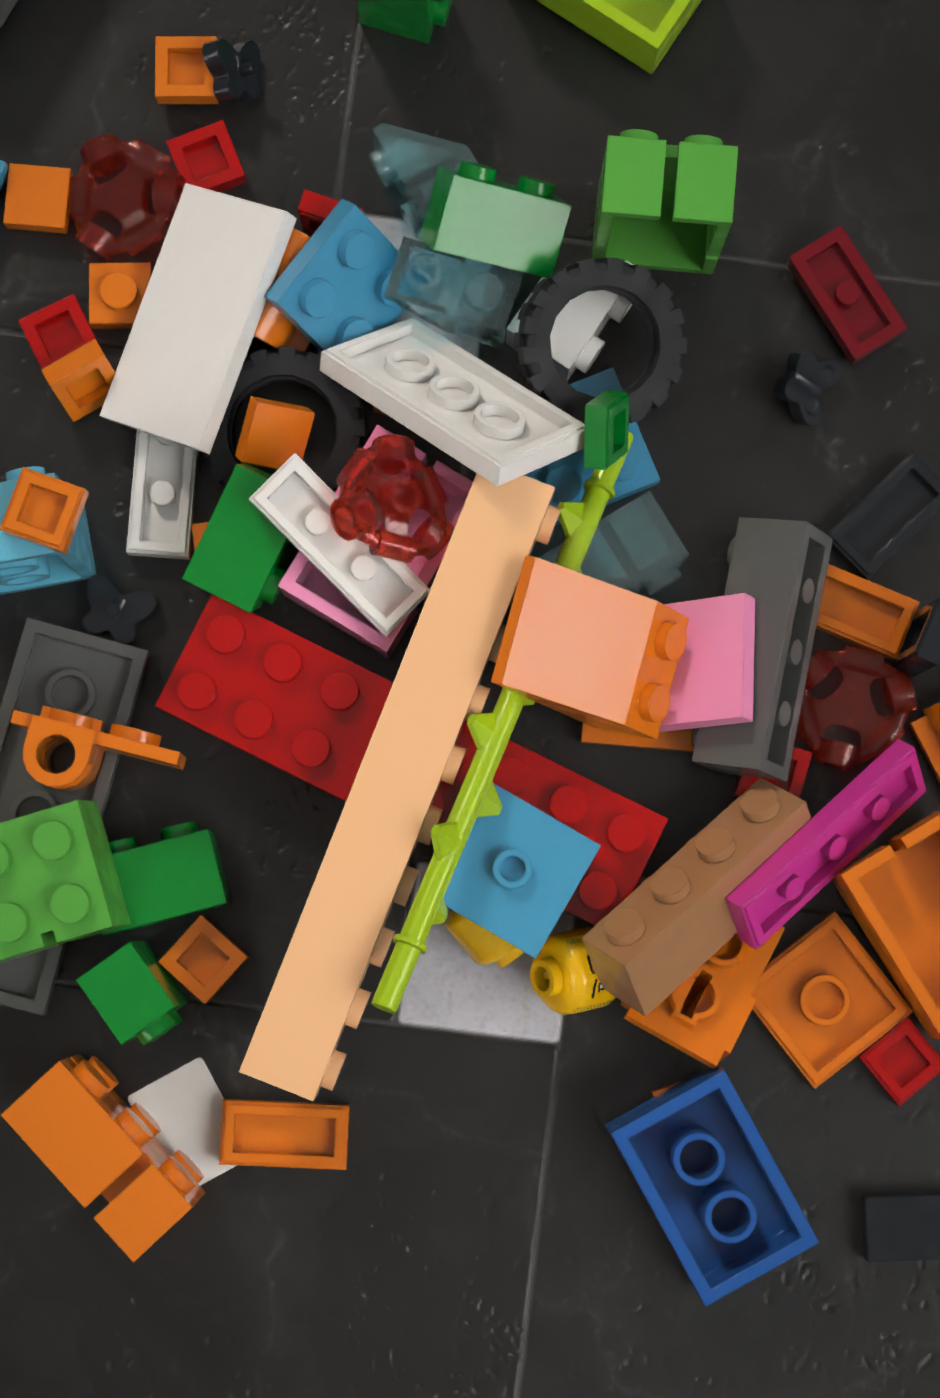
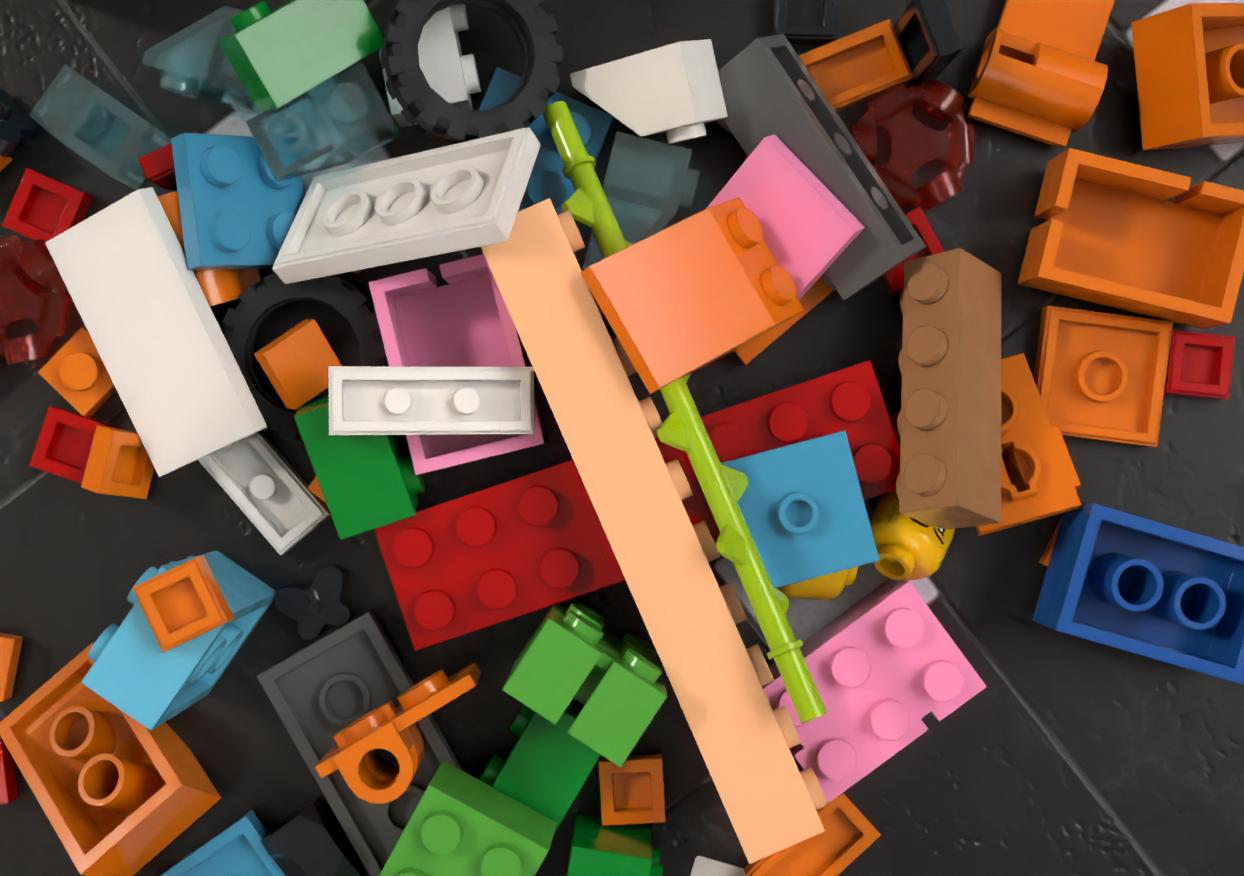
camera: 40 degrees left, 5 degrees up
(263, 849) = (585, 662): none -> bright green piece
(300, 140) = (98, 126): none -> clear light blue slope
(373, 496) = (437, 330): clear red piece -> none
(444, 1051) = (878, 677): none -> bright pink piece
(606, 429) = (542, 116): green tile -> none
(706, 492) = (659, 90): none -> white slope
(826, 844) = (1001, 264): dark pink tile -> none

